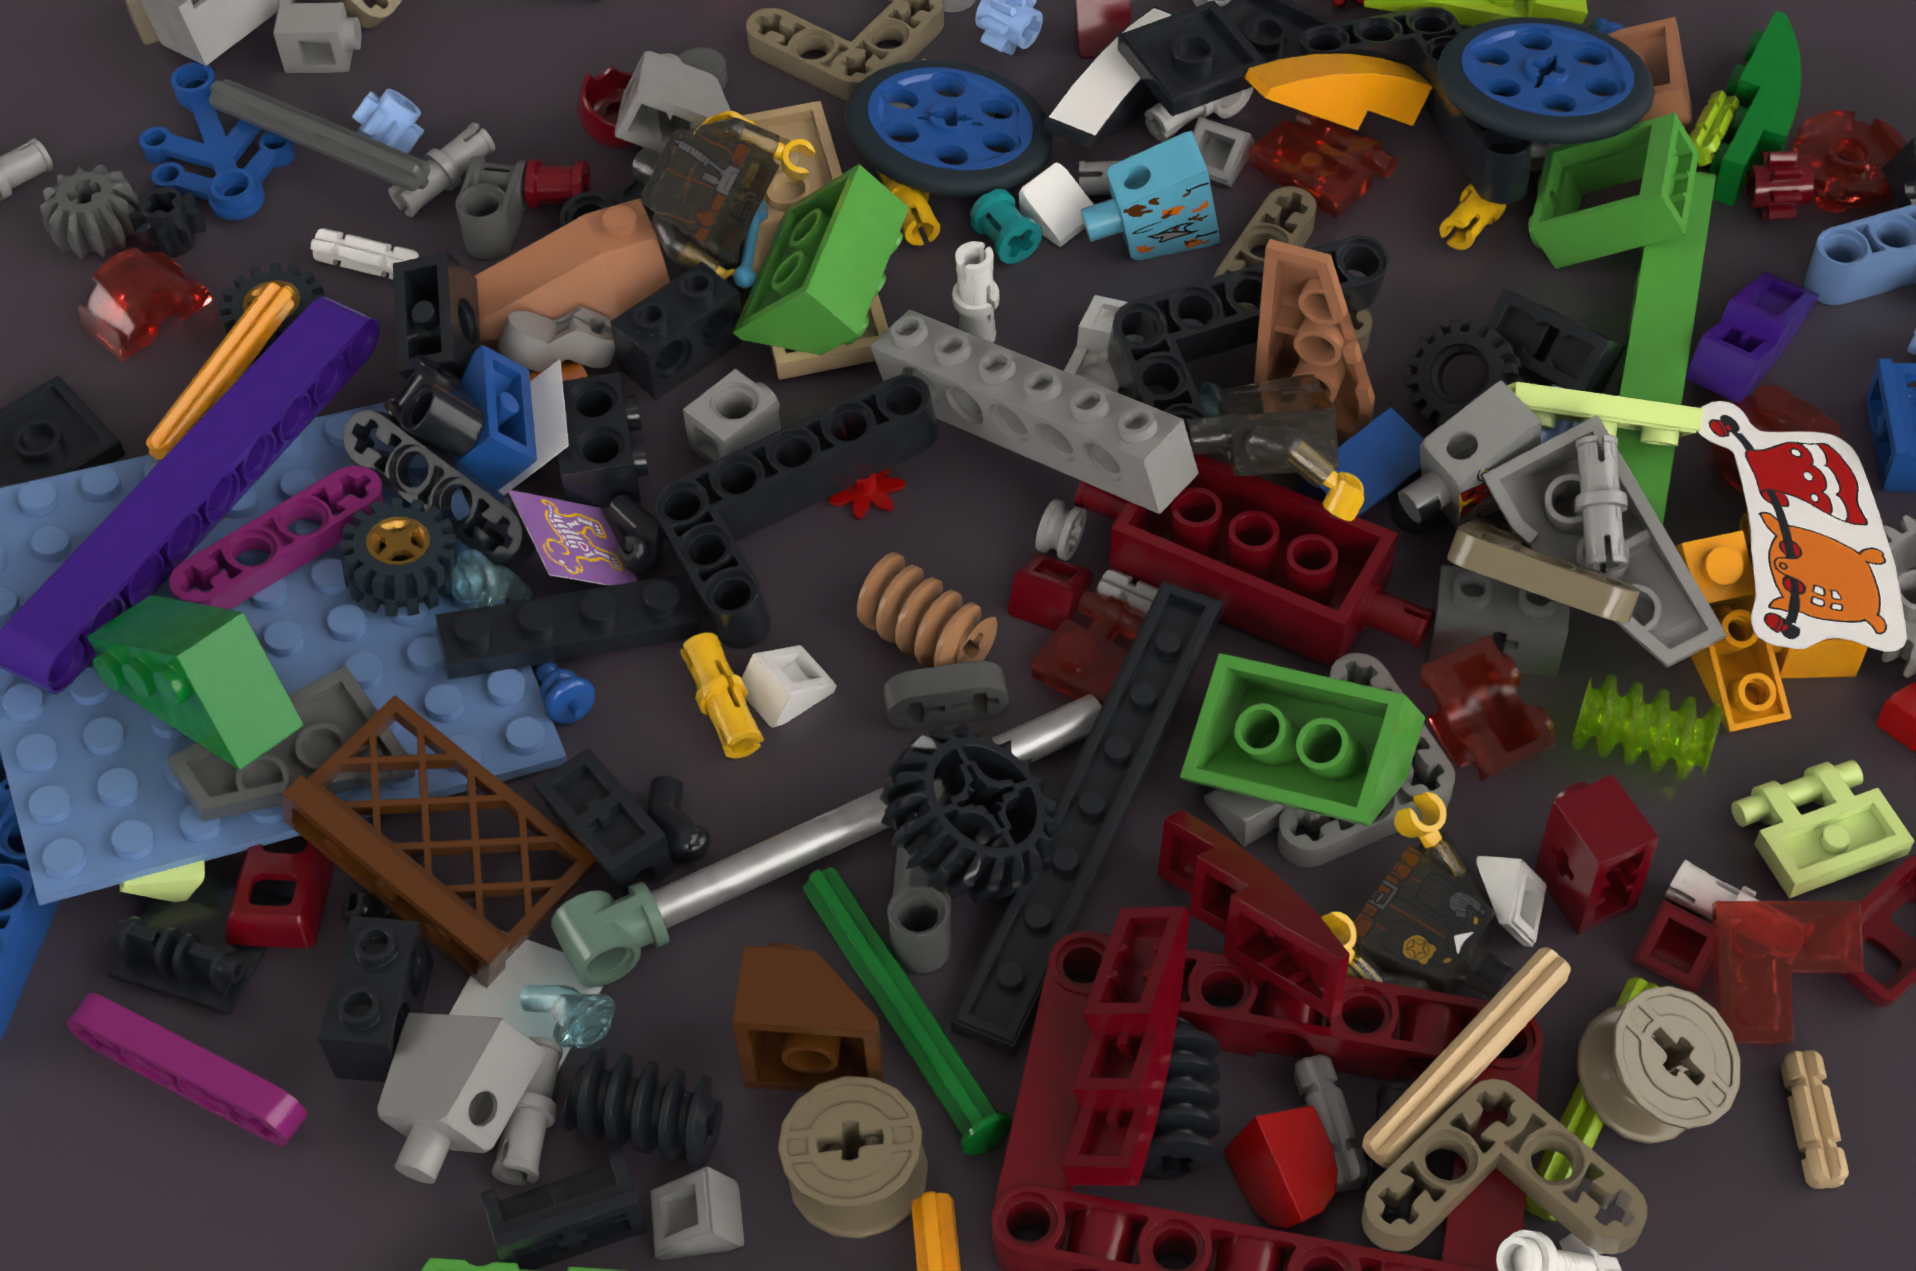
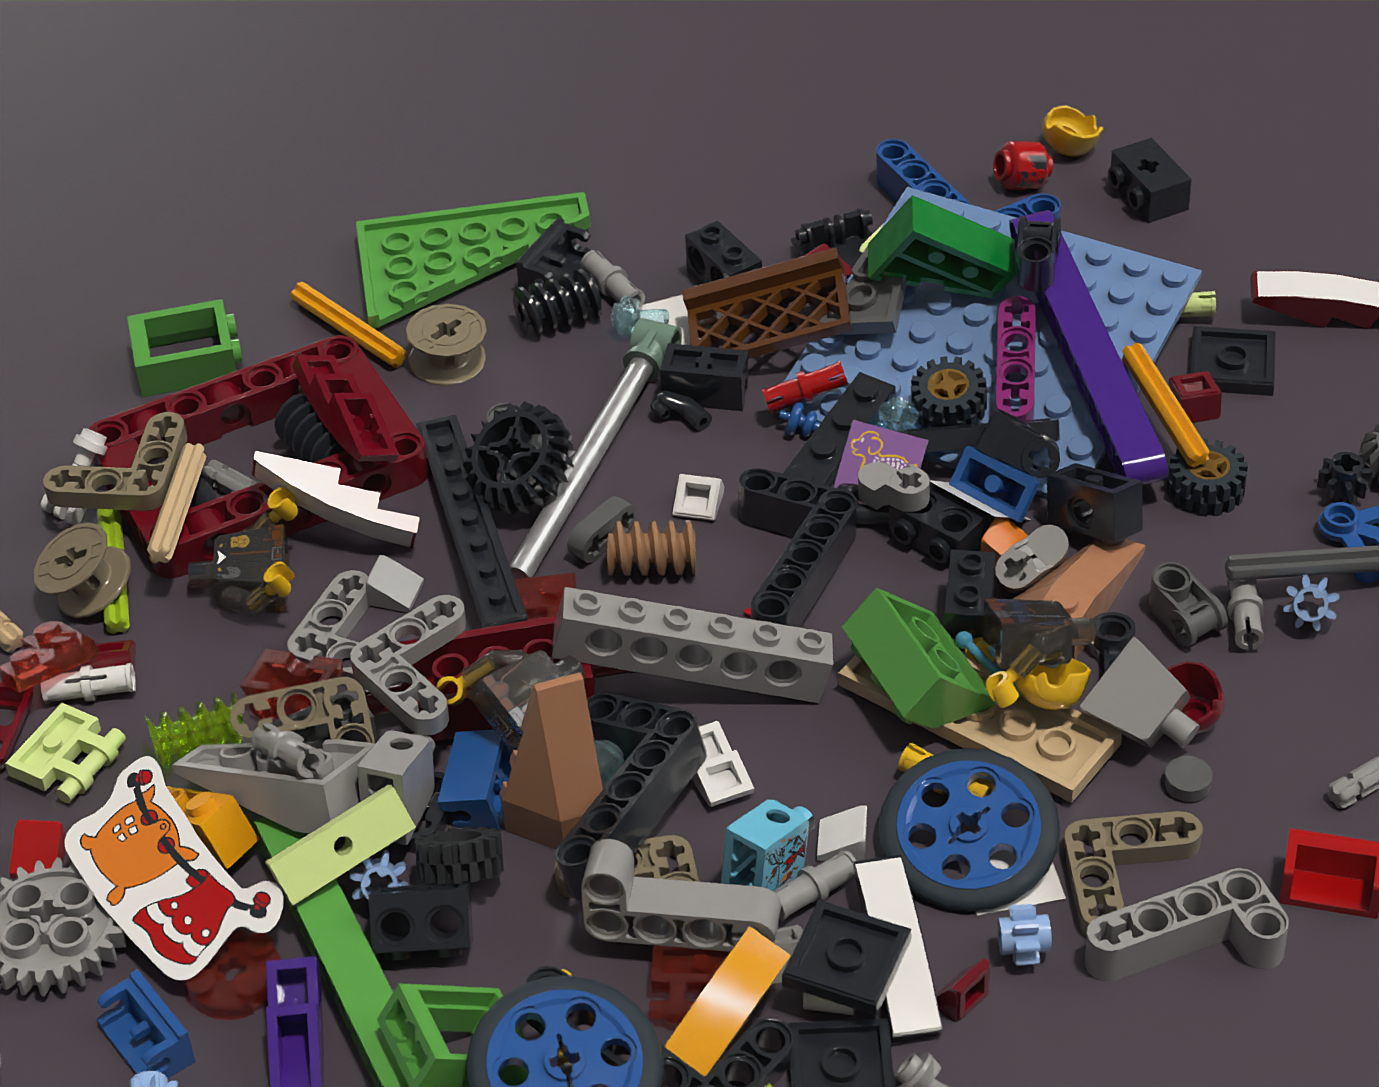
camera: 140 degrees right, 10 degrees down
(109, 559) = (1037, 253): none -> black piece
(135, 296) = (1291, 444): clear red cylinder -> none
(138, 410) = (1197, 395): none -> dark red slope
(187, 1069) = (777, 203): magenta beam -> none
(358, 252) = (1216, 542): white axle -> none
(454, 1087) = (649, 256): light grey torso -> none
(525, 696) = (805, 387): none -> red pin
(554, 182) = (1167, 638): dark red bush -> none
(609, 502) = (902, 488): none -> light grey piece
(696, 1215) = (494, 301): light grey slope -> none
(721, 695) = (717, 464): yellow pin -> none
(731, 416) = (874, 568): light grey brick -> none
(800, 1022) = (508, 349): reddish brown slope -> none
(907, 1013) = (462, 401): green axle -> none
(976, 292) = (809, 708): white pin -> none
(1005, 226) = (856, 791): teal bush -> none
(1285, 1166) = (237, 446): red brick -> none
(1302, 740) = (368, 593): bright green slope -> none
(1304, 180) = (667, 910): none -> light grey beam
(1384, 574) = (384, 661): none -> light grey beam
(1515, 895) = (216, 613): white slope -> none
(1595, 853) = (177, 633): dark red brick -> none

